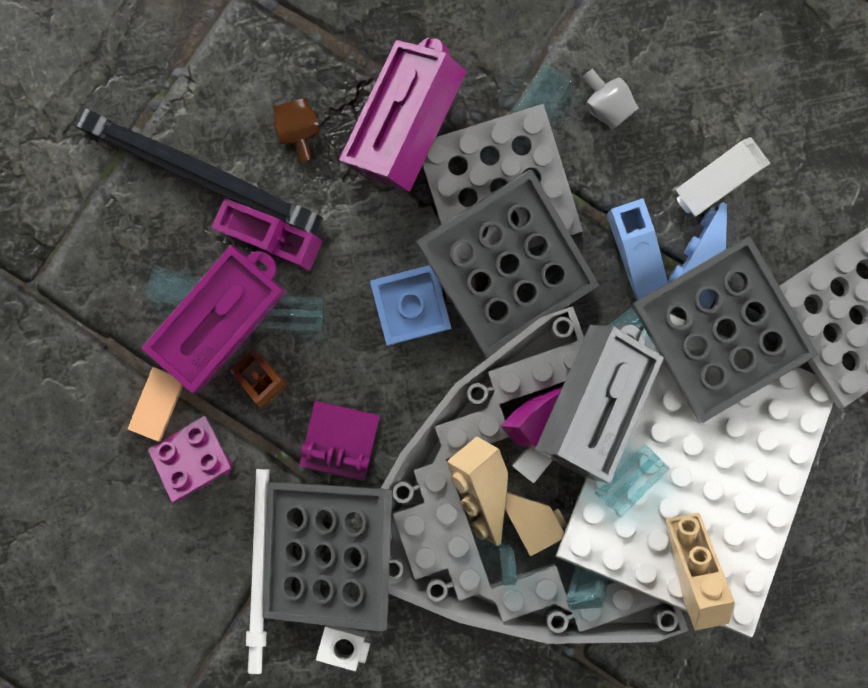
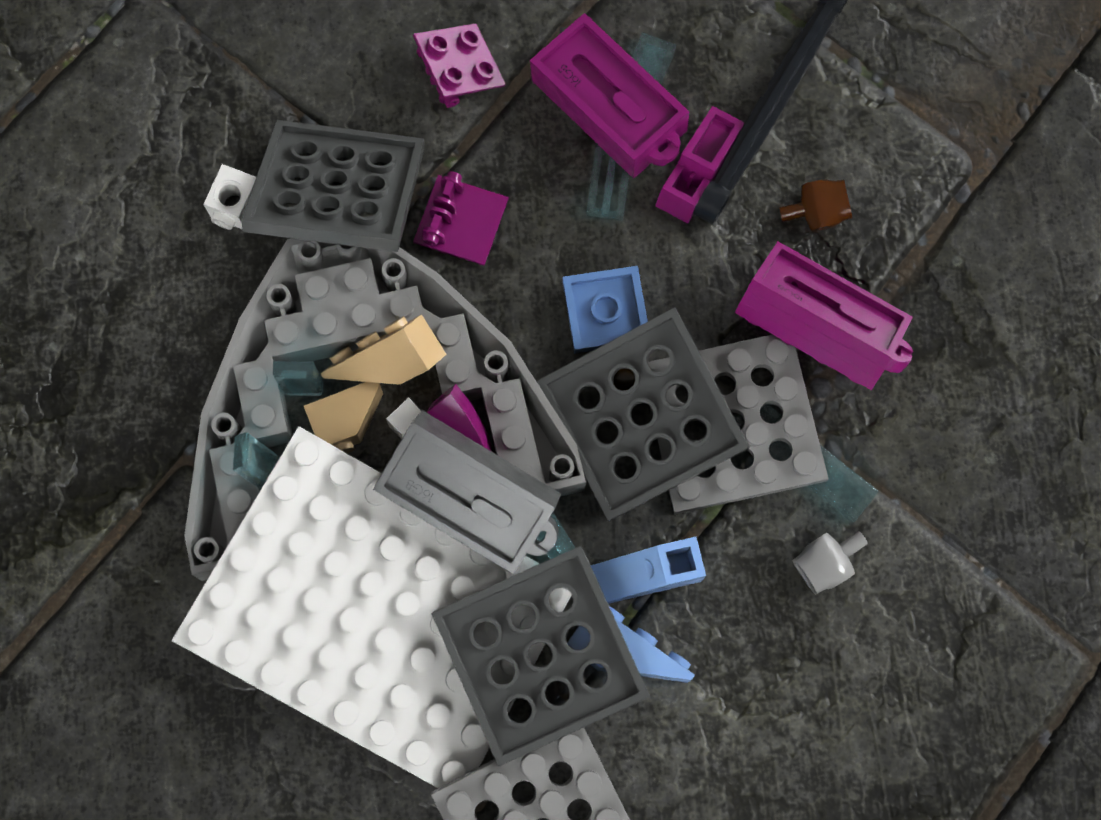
camera: 90 degrees right, 10 degrees down
(155, 405) = (518, 31): light nougat tile -> none
(256, 636) = (257, 113): white bar -> none
(259, 378) = (537, 141): reddish brown slope -> none
(611, 501) = (352, 494): clear light blue tile -> none
(699, 572) = (257, 580): tan slope -> none
(721, 177) = (727, 684): white slope -> none

